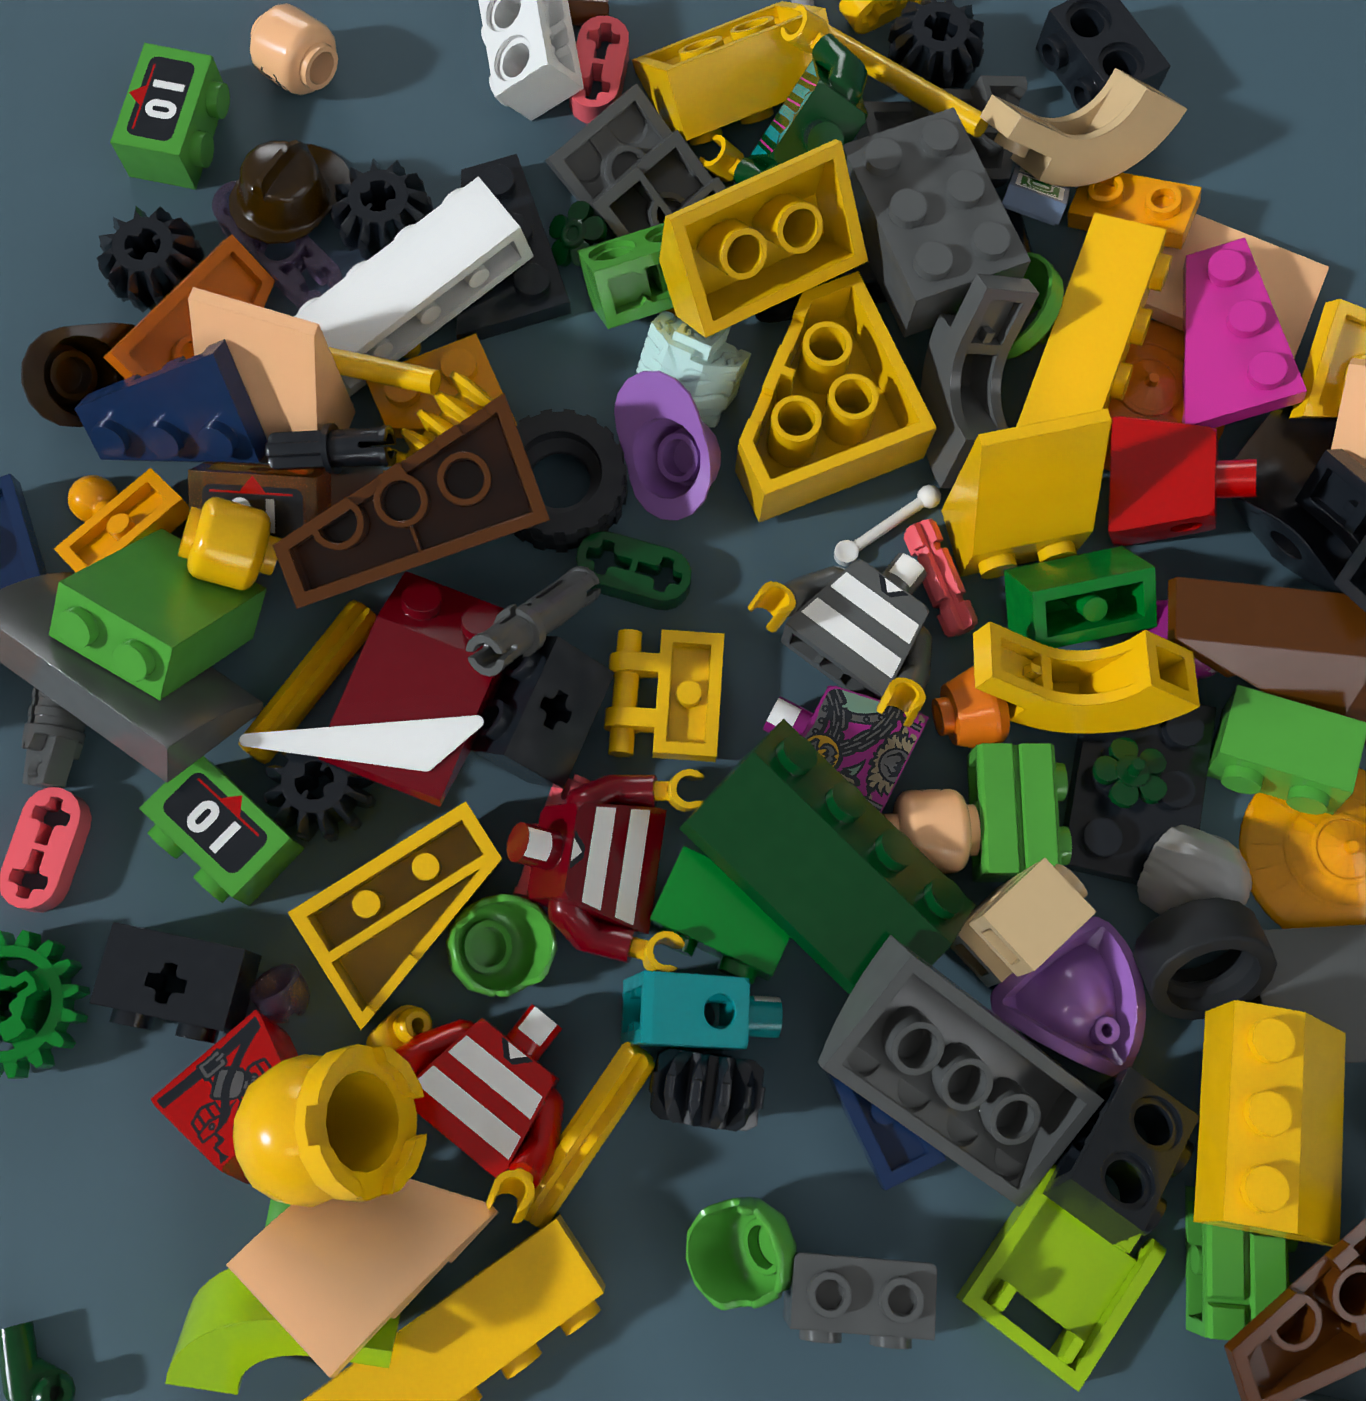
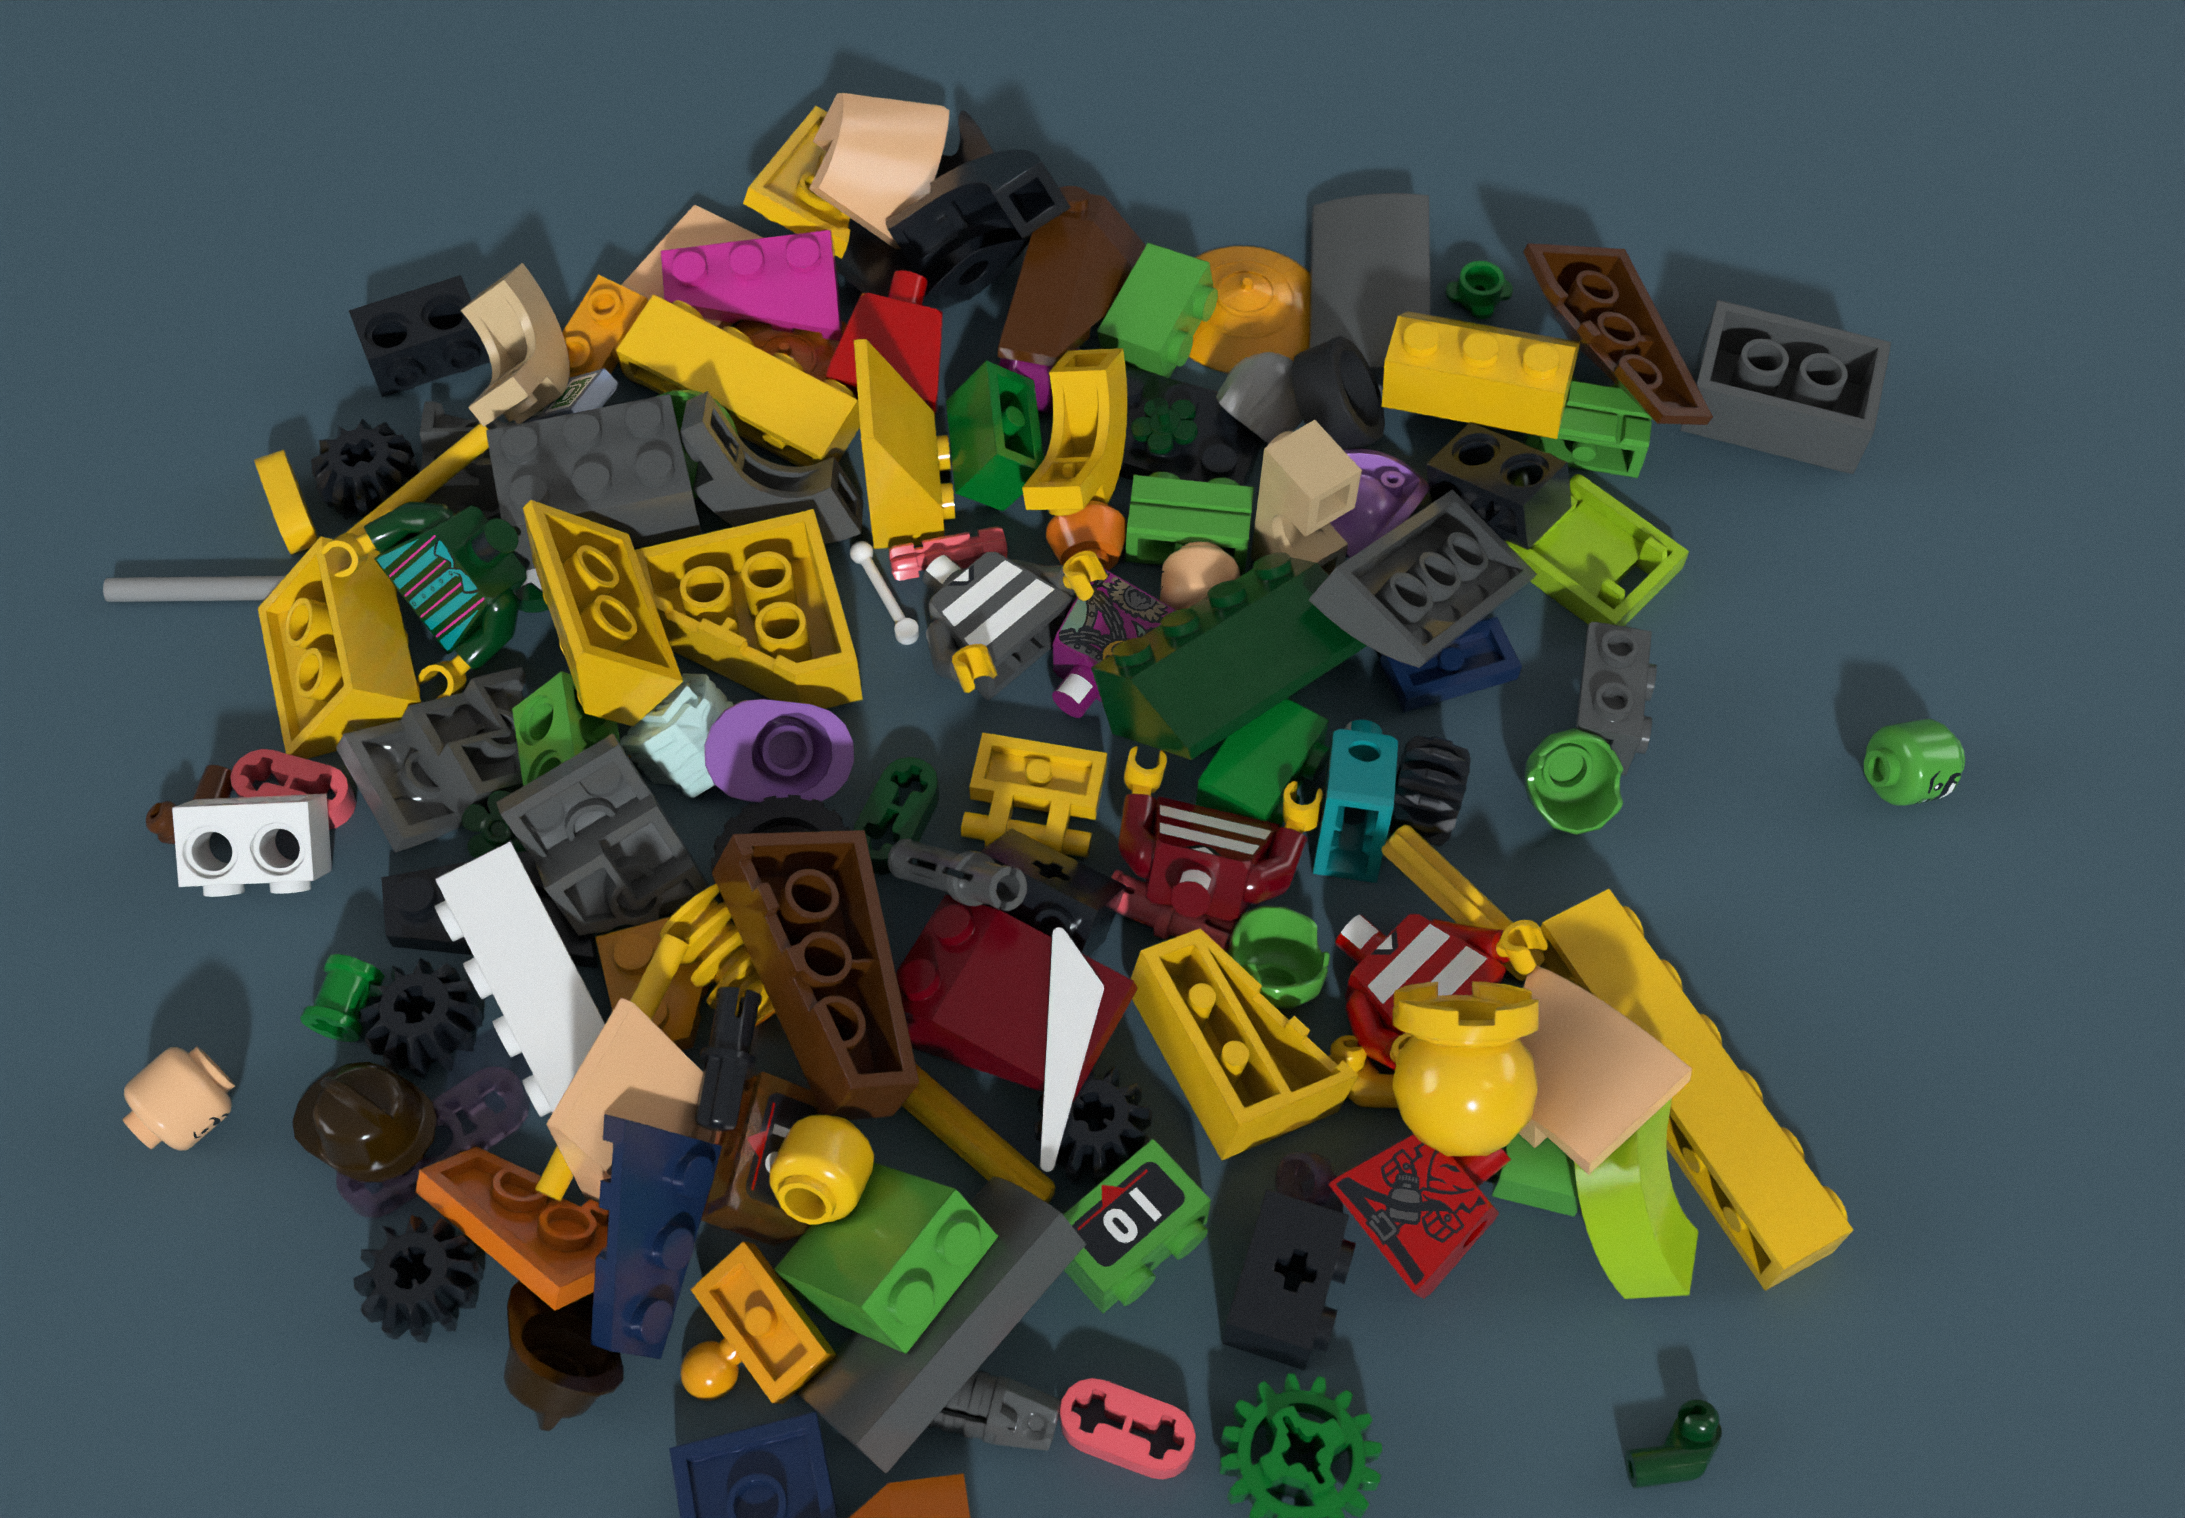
camera: 80 degrees left, 15 degrees down
(170, 116) = (226, 1247): bright green brick -> none
(391, 144) = (341, 998): none -> green bush
(548, 313) = (602, 842): none -> dark grey slope

